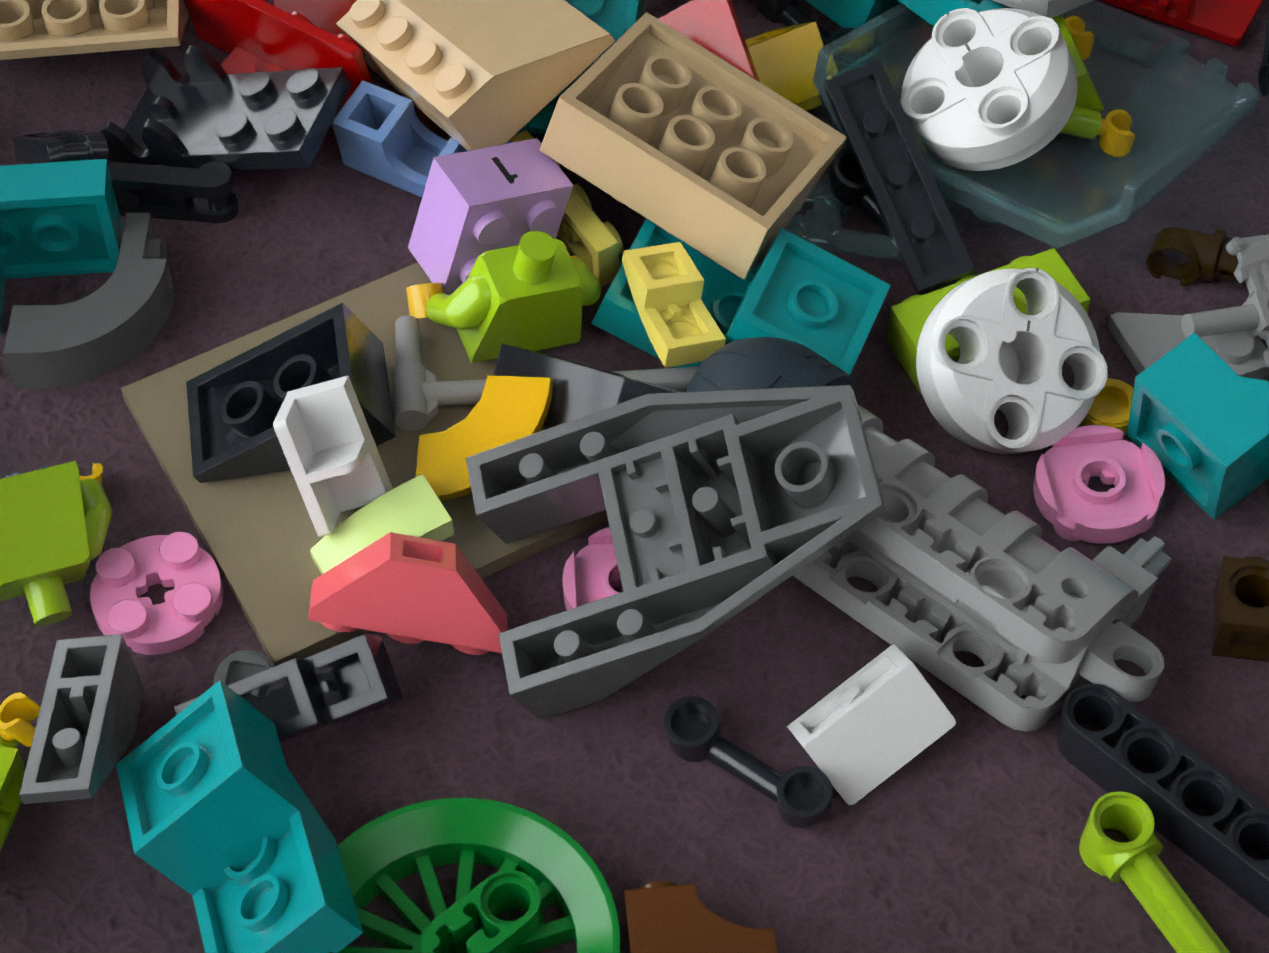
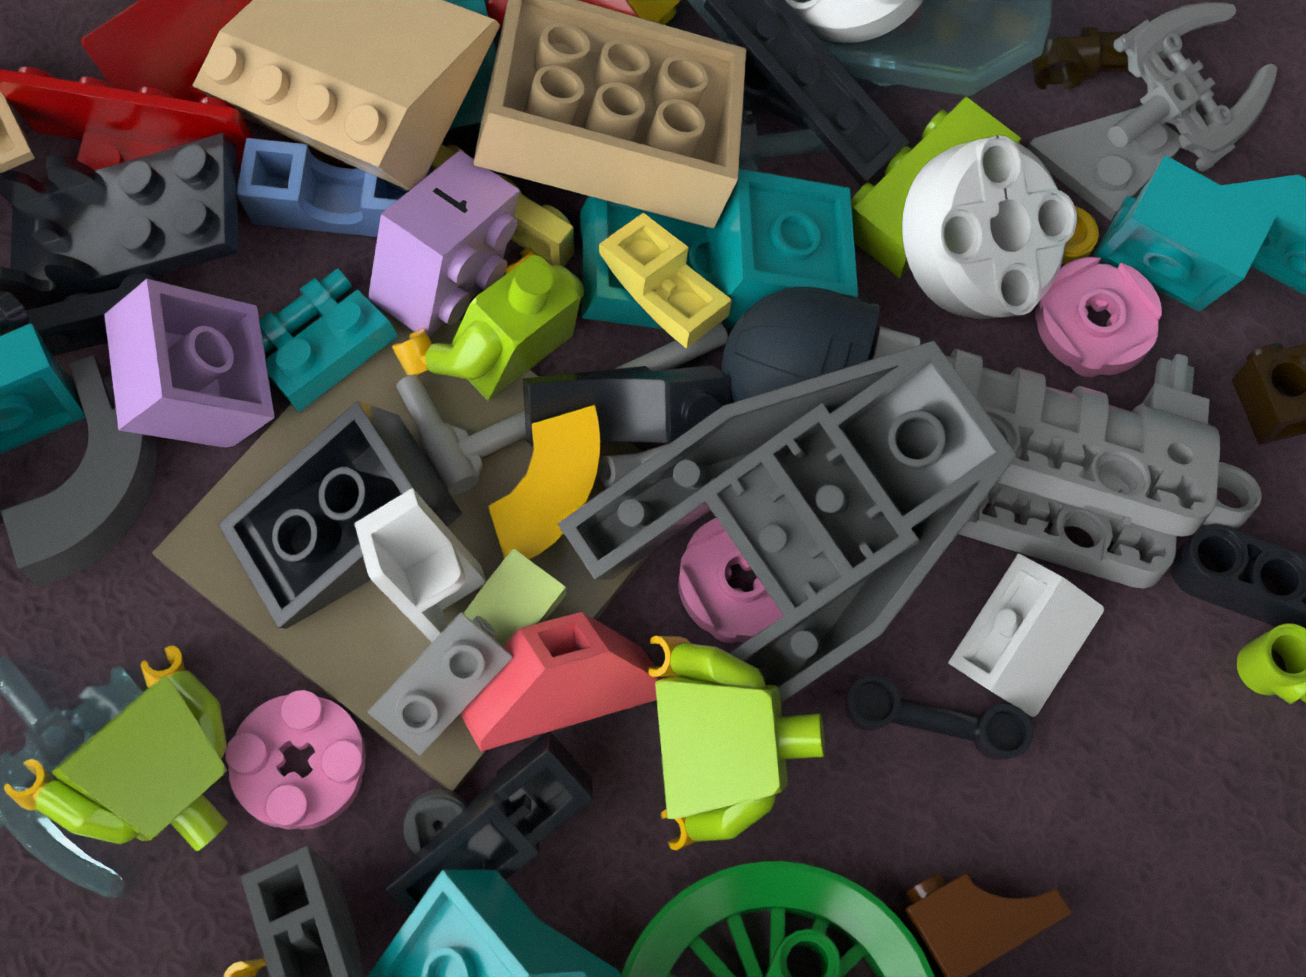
camera: 30 degrees left, 15 degrees up
(223, 244) = (187, 365): none -> lavender brick
(302, 552) = (441, 682): none -> light grey hinge
(349, 266) = (330, 346): none -> teal plate
(516, 683) = (723, 741): none -> lime torso

